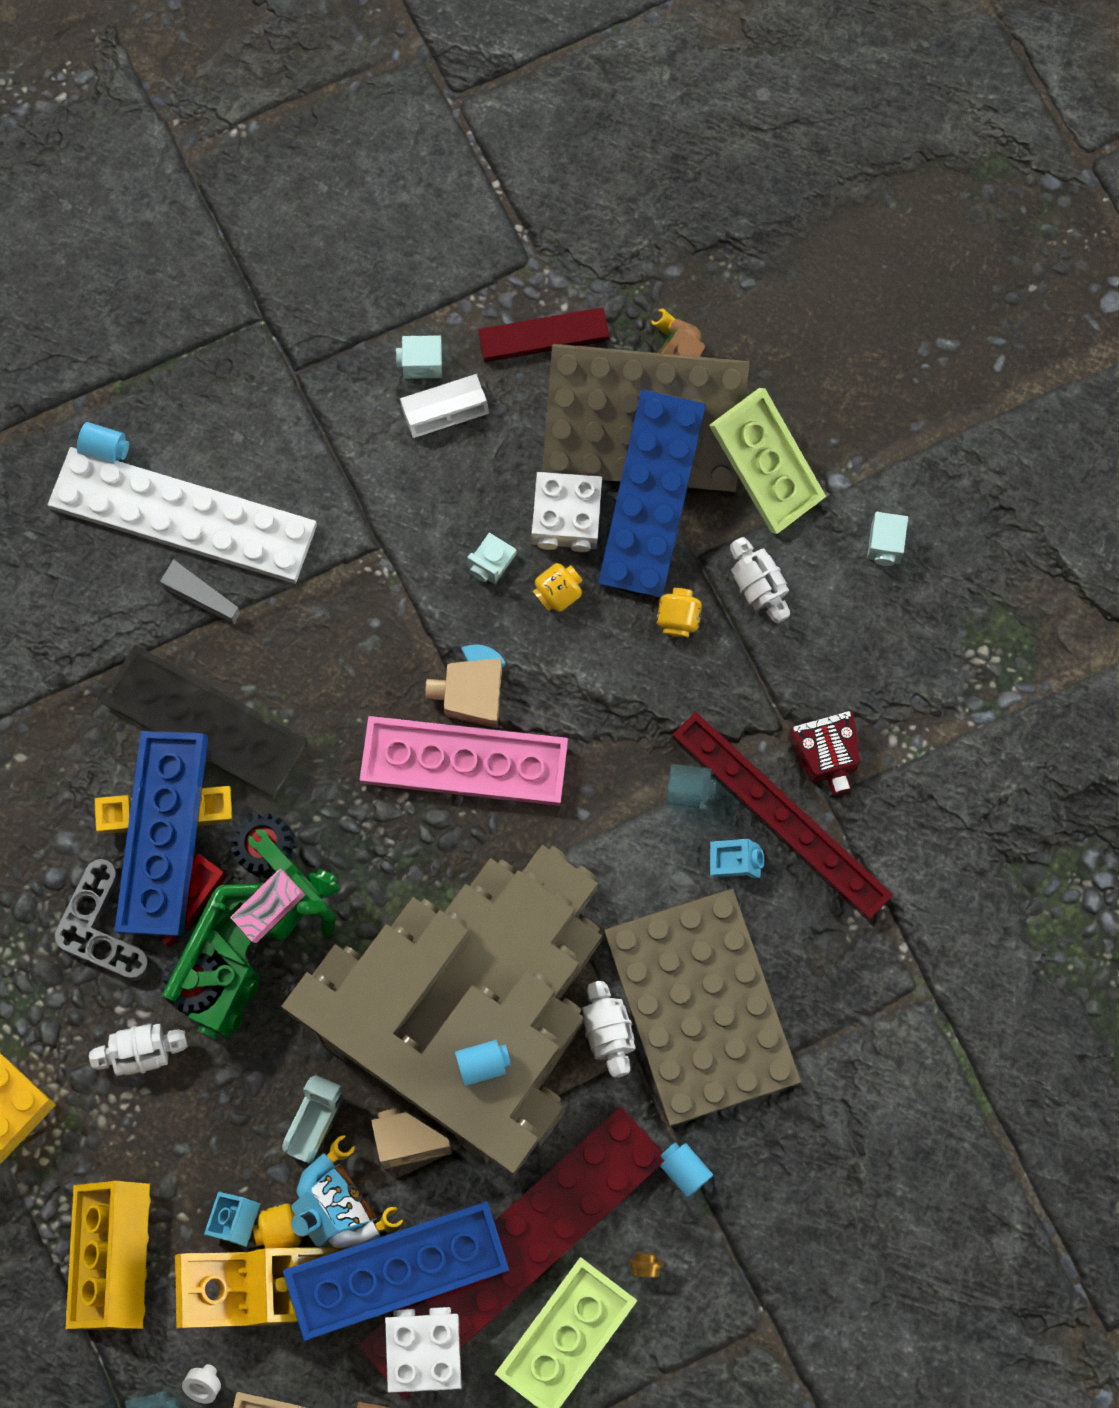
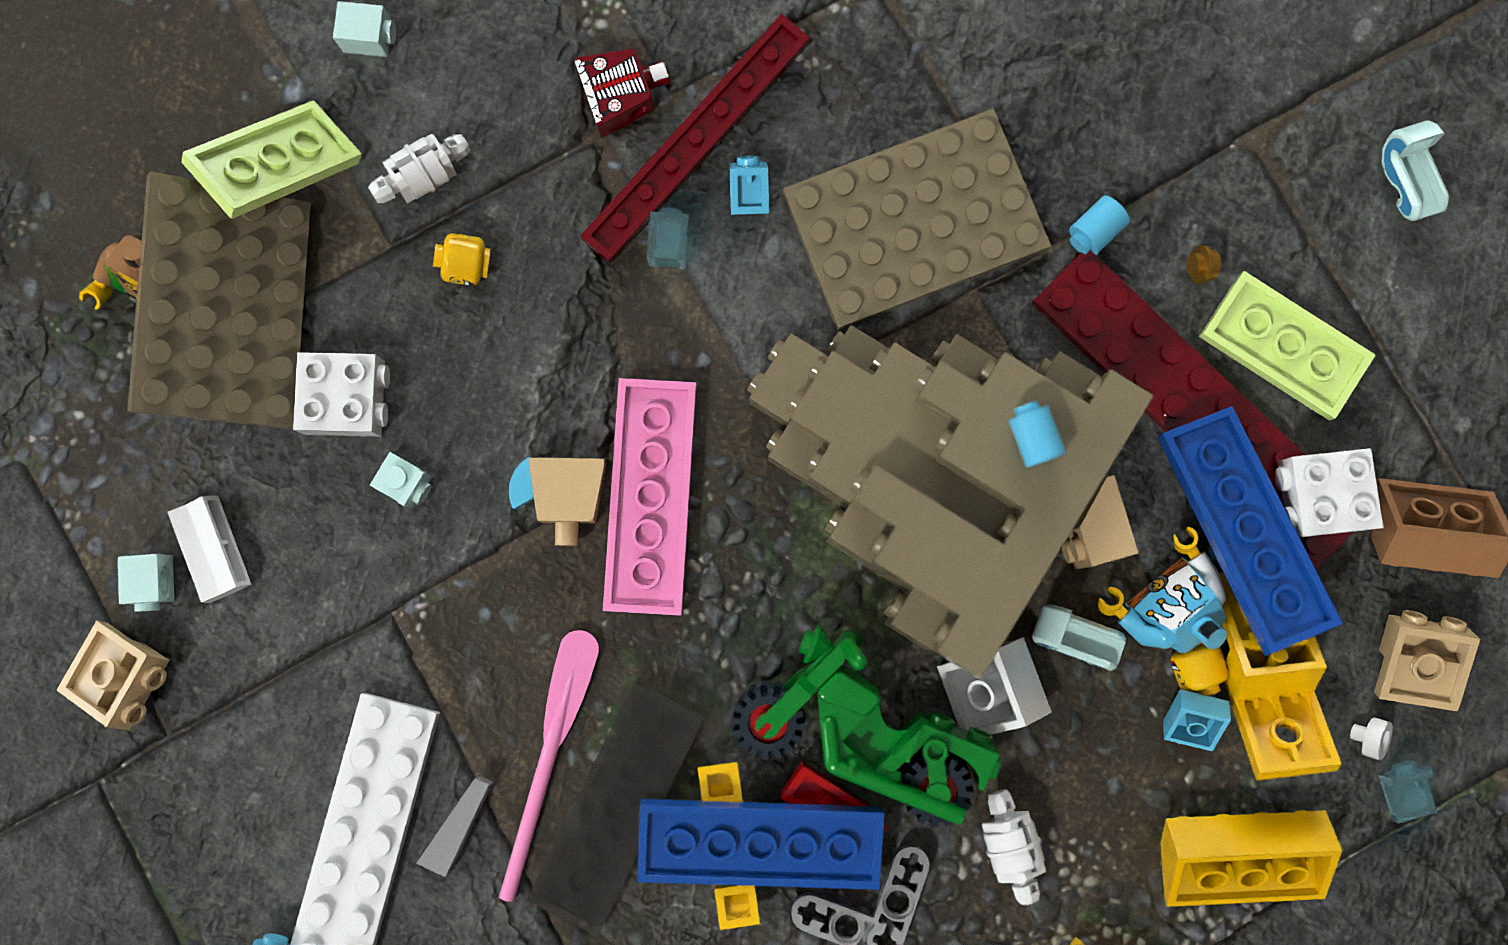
camera: 90 degrees left, 10 degrees up
(267, 905) = (850, 707): bright pink tile -> none
(273, 1047) = (1003, 698): none -> white slope
(302, 685) = (566, 692): none -> bright pink piece
(344, 331) = (113, 677): none -> tan plate
(541, 333) = (114, 436): dark red tile -> none
(558, 587) = (435, 399): yellow head -> none
(608, 1029) = (953, 313): white piece -> none
(652, 493) = (314, 290): blue plate -> none

